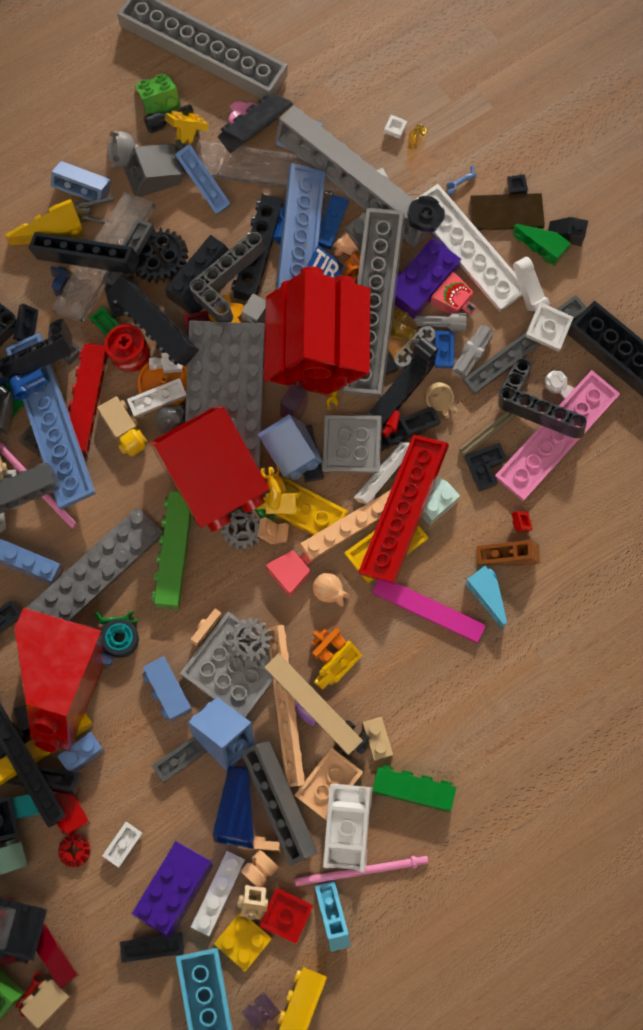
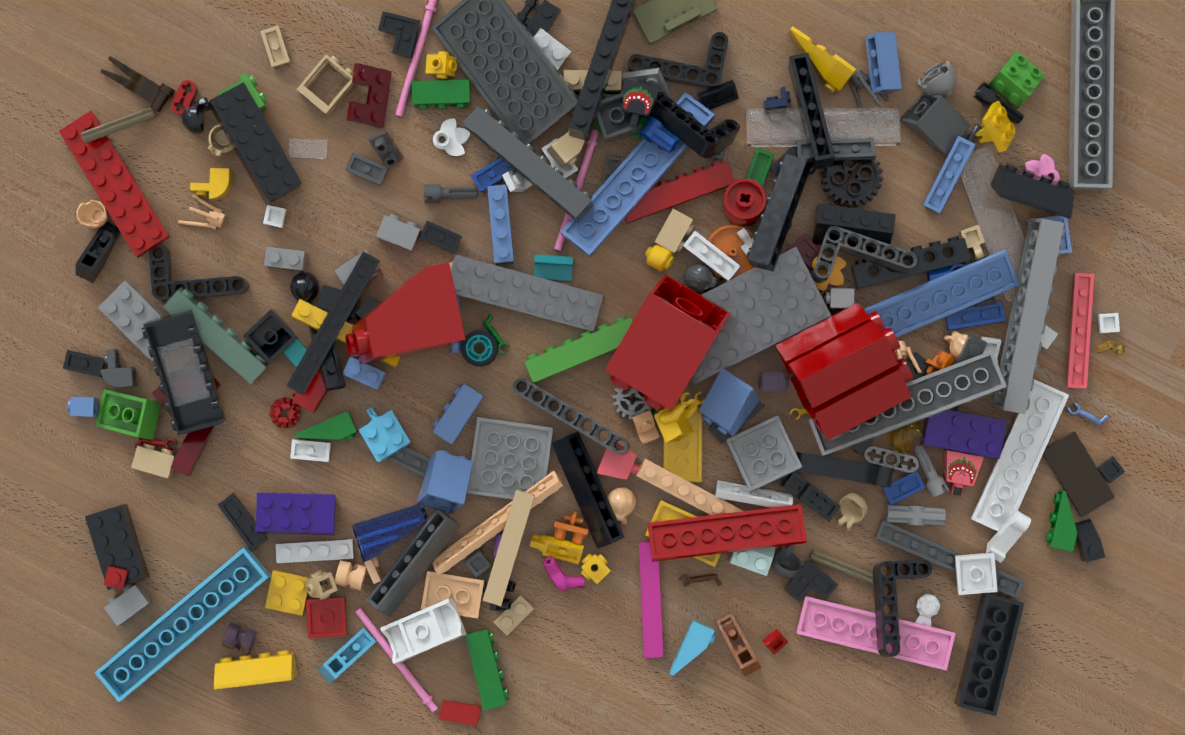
camera: 65 degrees right, 15 degrees up
(86, 535) = (553, 267): none -> teal panel
(115, 810) = (335, 428): none -> green slope
(147, 766) = (384, 435): none -> medium azure plate
(205, 627) = (529, 415): light nougat plate -> none
(216, 588) = (562, 412): none -> dark grey beam
(250, 630) = (536, 463): light grey gear -> none
(269, 188) = (974, 238): none -> tan plate
(300, 609) = (587, 490): none -> black brick
(313, 745) = (478, 563): none -> dark grey plate
(325, 261) = (926, 334): blue sticker -> none
(366, 678) = (559, 578): none -> dark pink arm
(376, 634) = (595, 575): none -> yellow brick
(389, 150) = (1080, 330): none -> coral plate
(392, 424) = (802, 479): red bar -> none
(421, 222) = (1030, 410): black plate -> none
(433, 556) = (701, 579): none -> reddish brown piece
(441, 837) = (459, 712): none -> red tile
(458, 476) = (786, 563): none -> dark grey piece

